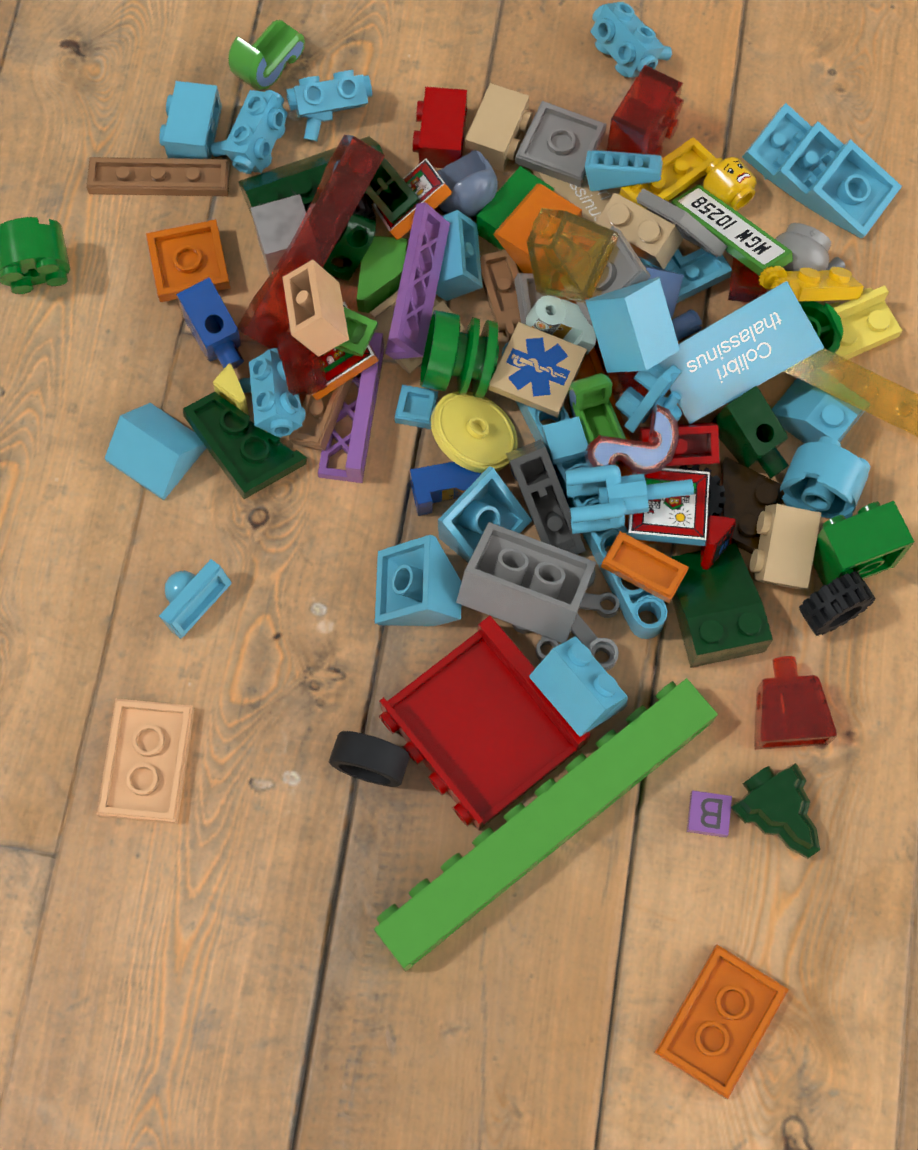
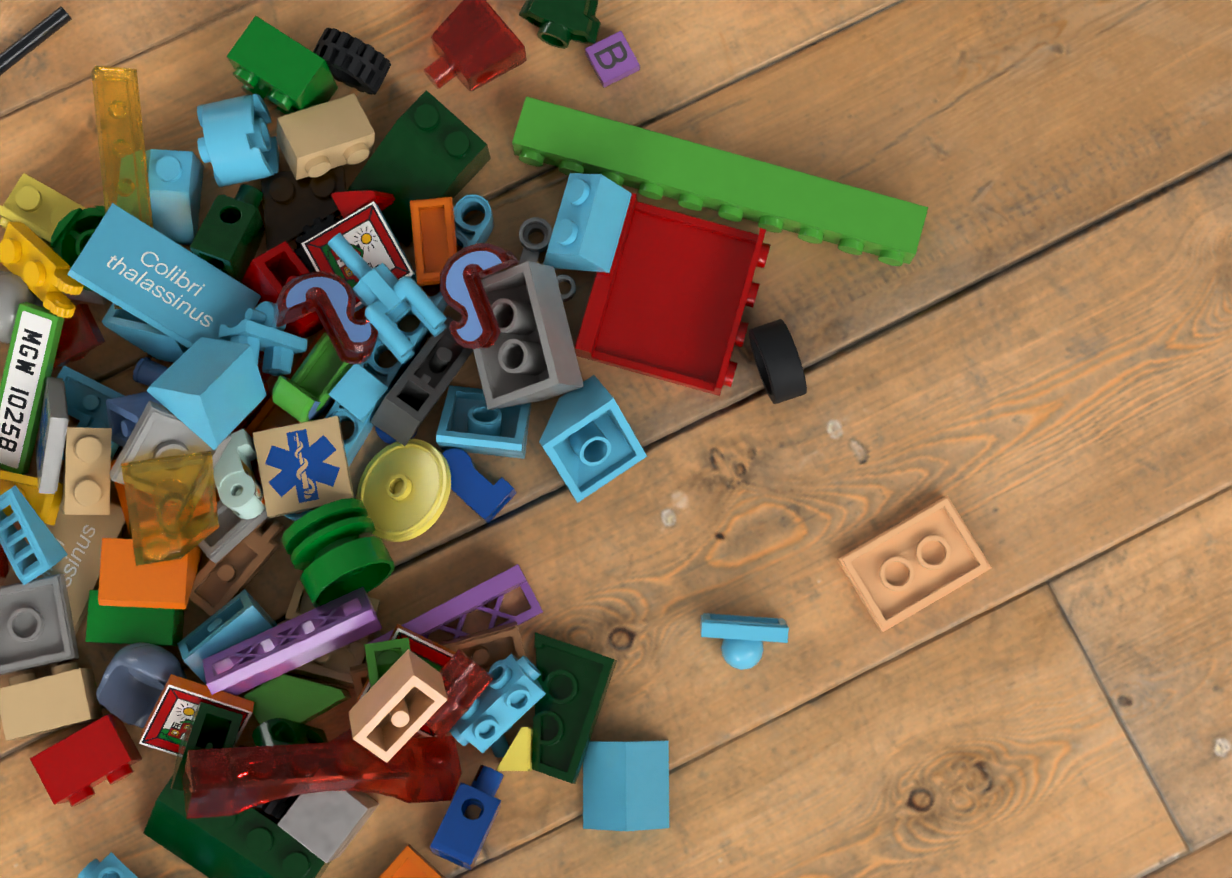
camera: 125 degrees left, 10 degrees up
(415, 406) = (412, 570): medium azure tile -> none
(578, 551) = (465, 292): none -> clear red animal

